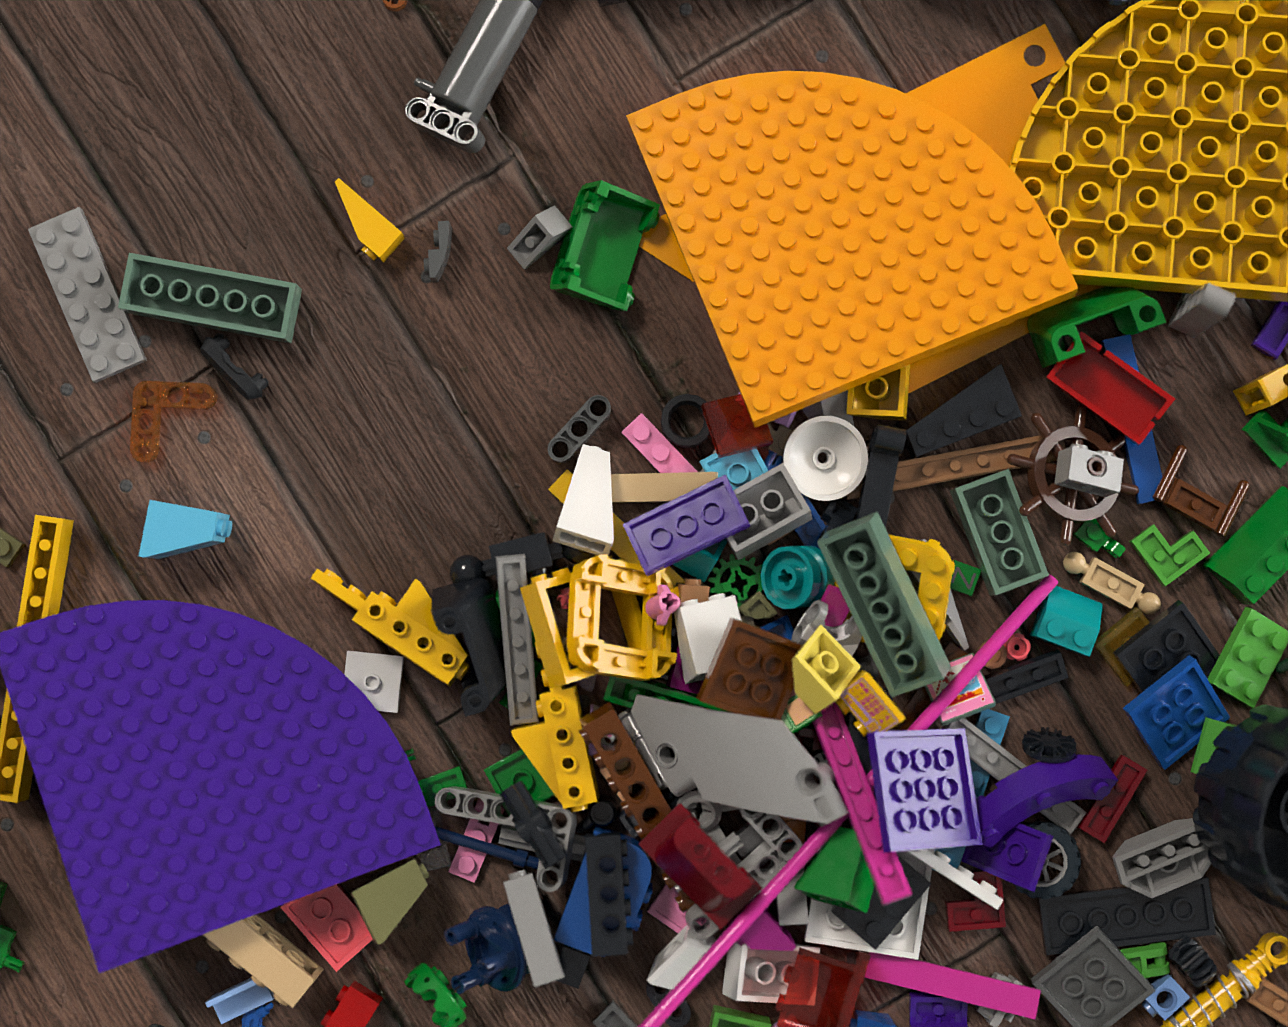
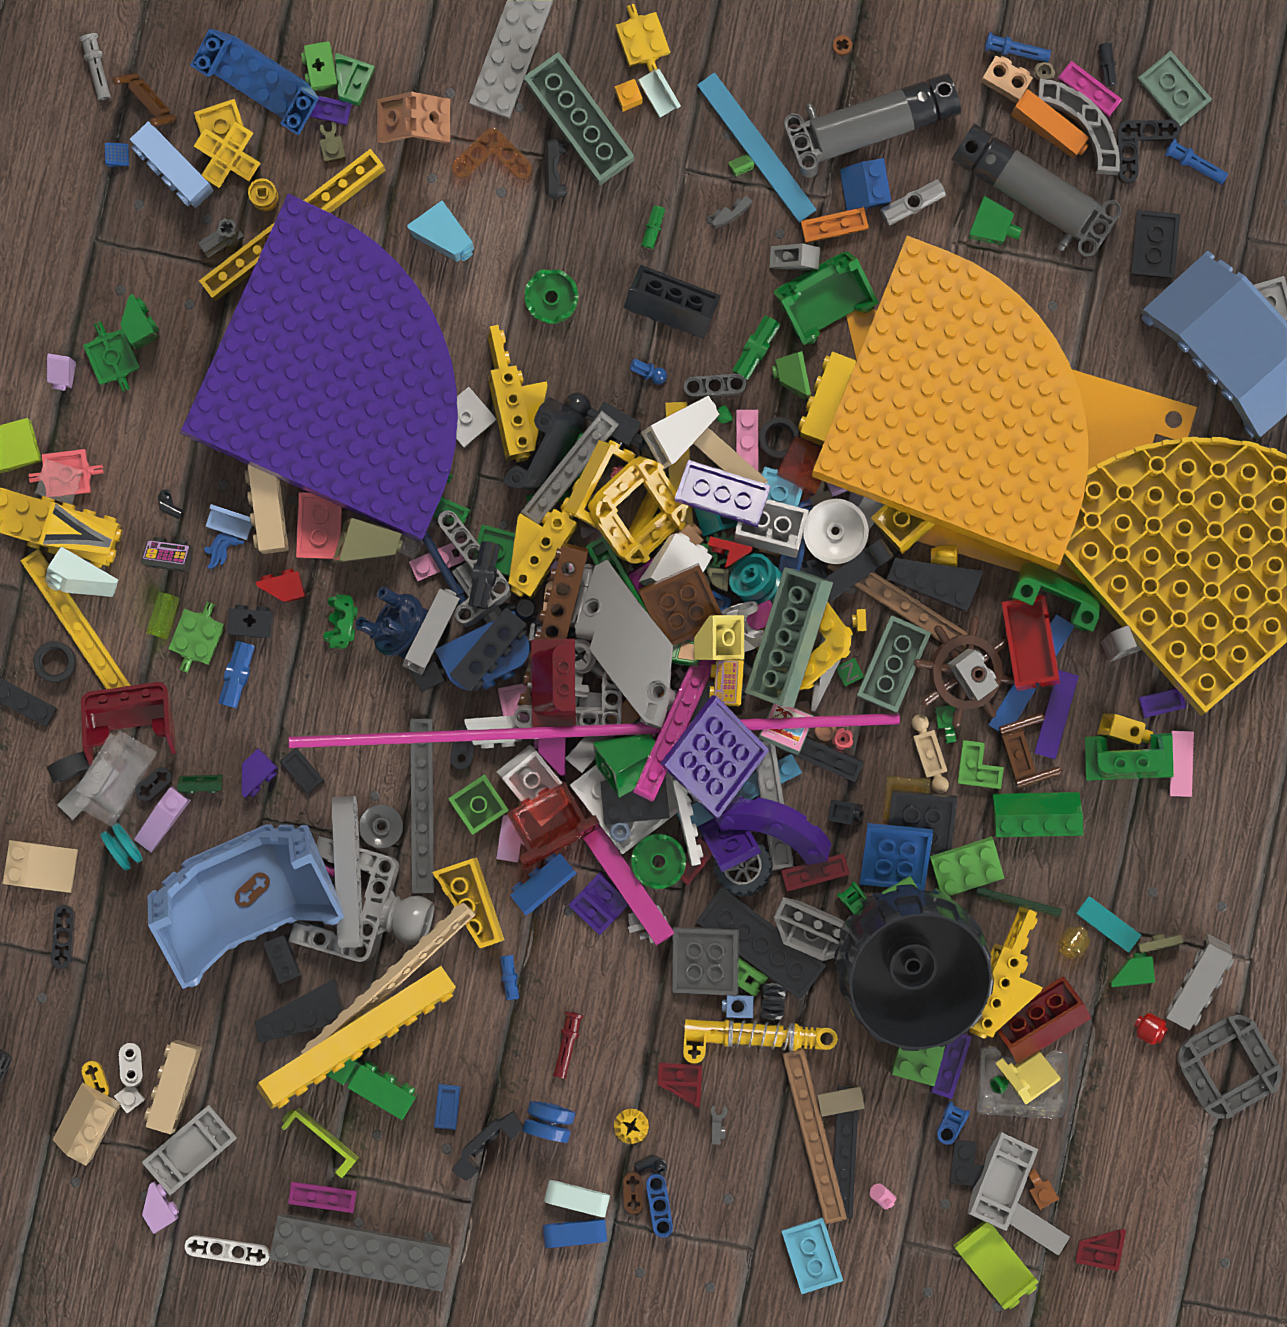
camera: 40 degrees right, 0 degrees up
(44, 448) = (413, 118): none -> nougat bracket
(201, 167) = (642, 39): none -> yellow plate
(236, 231) = (628, 95): none -> light orange brick
(263, 202) = (659, 92): none -> light aqua panel
(324, 487) = (547, 281): none -> green plate
(372, 228) = (705, 164): yellow slope -> none
(379, 334) = (653, 227): none -> green axle
(405, 168) = (756, 147): none -> dark azure tile
(407, 198) = (741, 165): none -> bright green slope
(463, 388) = (672, 301): none -> black slope
(516, 470) = (657, 375): none -> blue axle
(541, 106) = (865, 185): none -> blue slope
(548, 171) = (834, 225): none -> orange plate
(584, 355) = (756, 347): none -> green piece
(605, 65) = (900, 209): none -> light grey piece
(615, 448) = (724, 415): none -> green hinge
(643, 348) = (792, 374): none -> bright green slope
(662, 605) = (667, 524): bright pink piece -> none
(694, 29) = (993, 223): none -> green torso
(697, 335) = (828, 396): none -> yellow brick
(750, 568) = (735, 550): none -> red slope
(900, 948) = (626, 832): none -> sand blue plate
(927, 521) = (859, 620): none -> yellow plate
(947, 383) = (945, 555): none -> yellow piece
(977, 944) = (649, 874): none -> green plate
(1049, 745) = (807, 807): black wheel -> none
(1068, 621) = (885, 750): teal slope -> none
(1087, 715) = (845, 812): none -> black bracket
(1174, 789) = (854, 903): none -> green piece
(1194, 435) = (1056, 715): none -> dark purple tile

